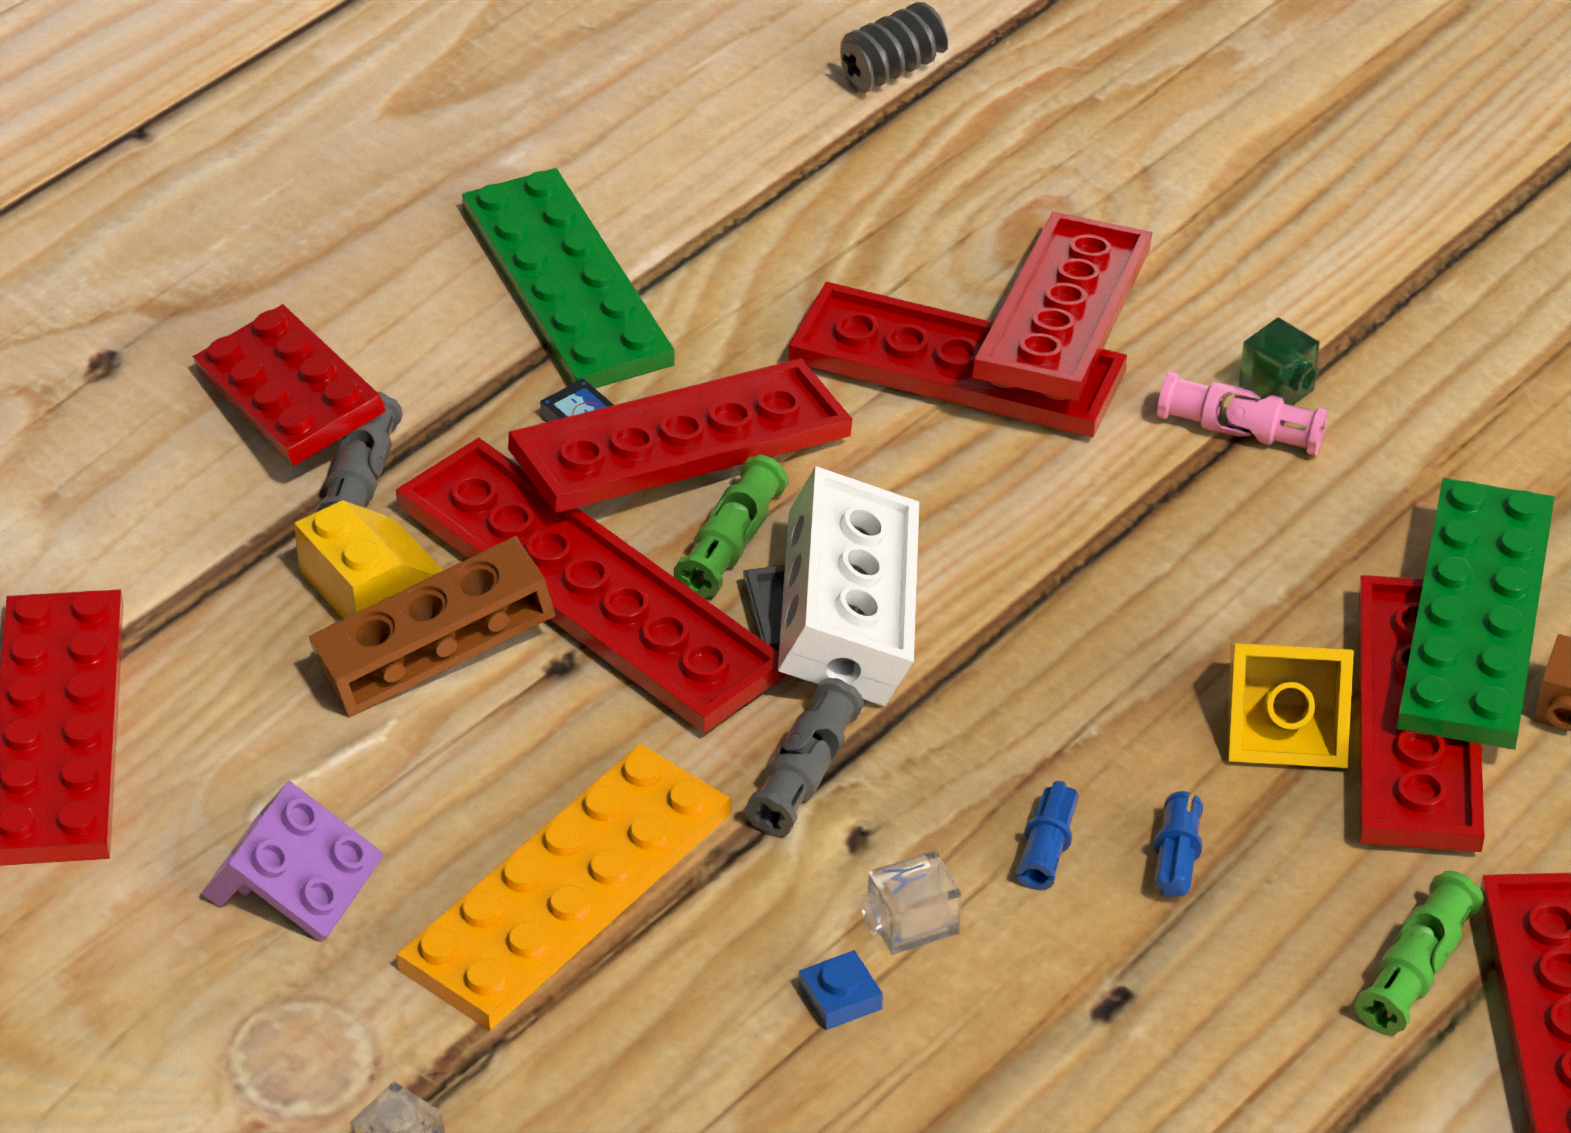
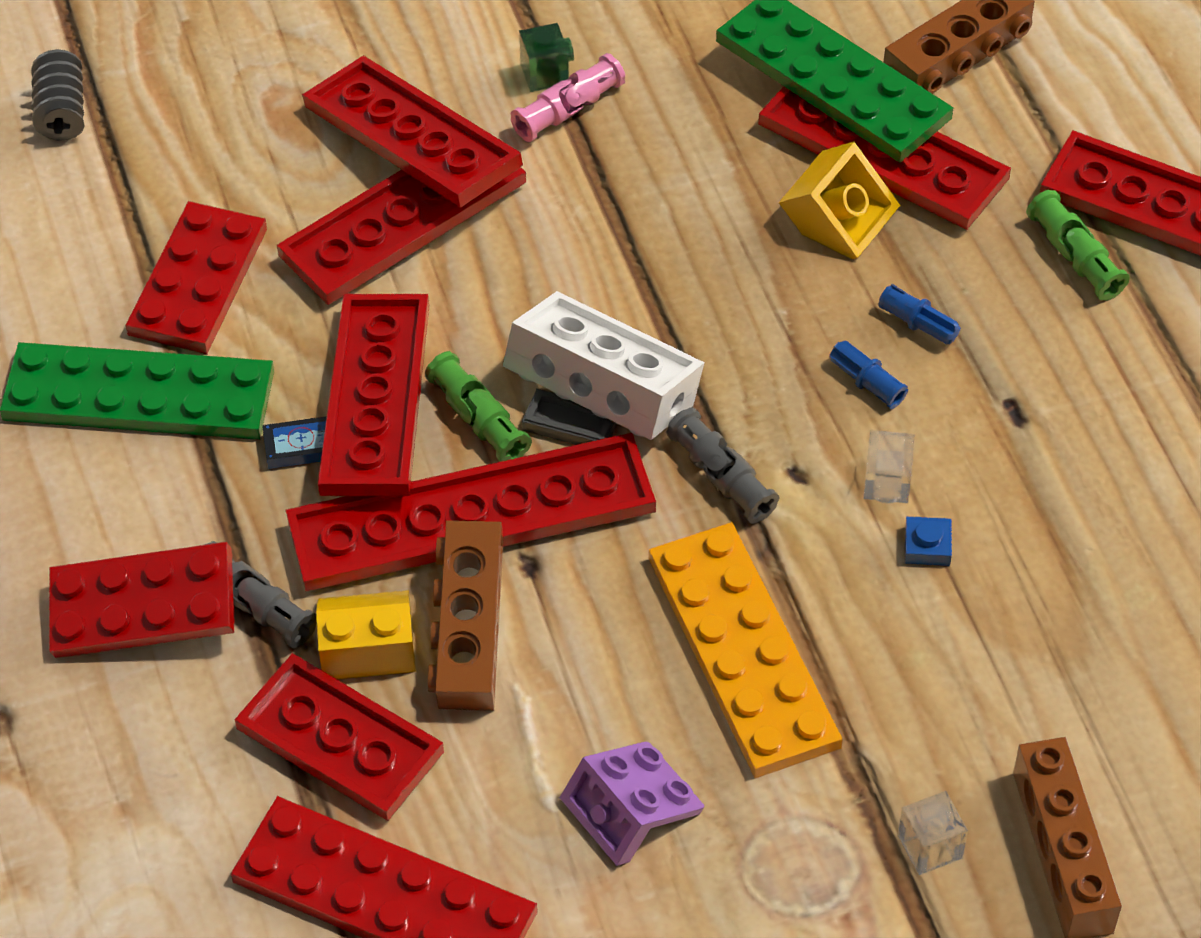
camera: 60 degrees left, 10 degrees up
(223, 605) = (339, 736): none -> red plate
(748, 253) = (196, 277): none -> red plate

